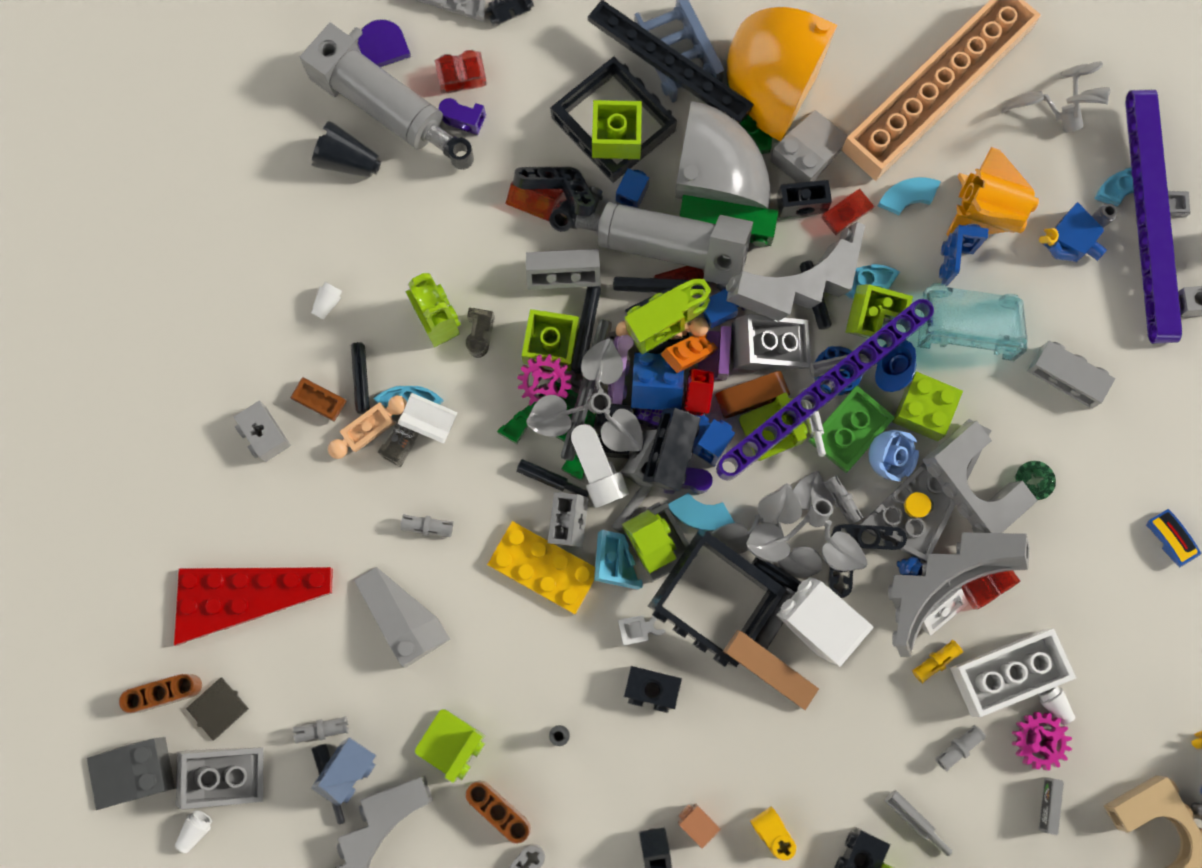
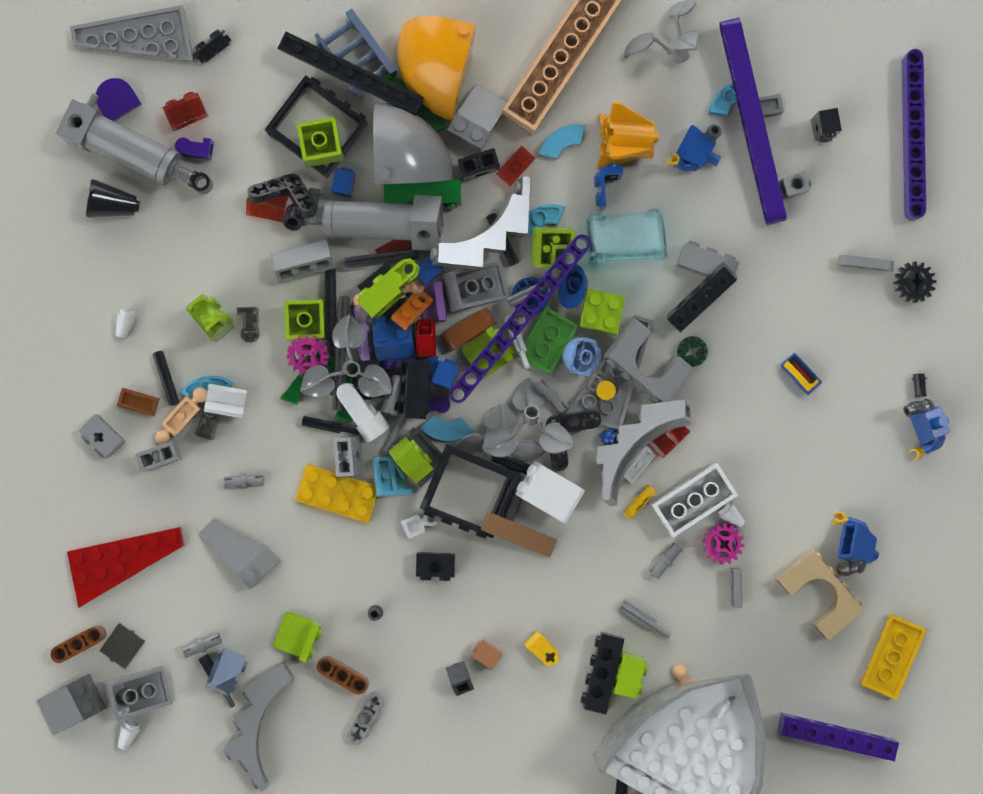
camera: 15 degrees left, 10 degrees up
(326, 470) = (158, 456): none -> light grey brick
(1063, 411) = (701, 297): none -> black brick

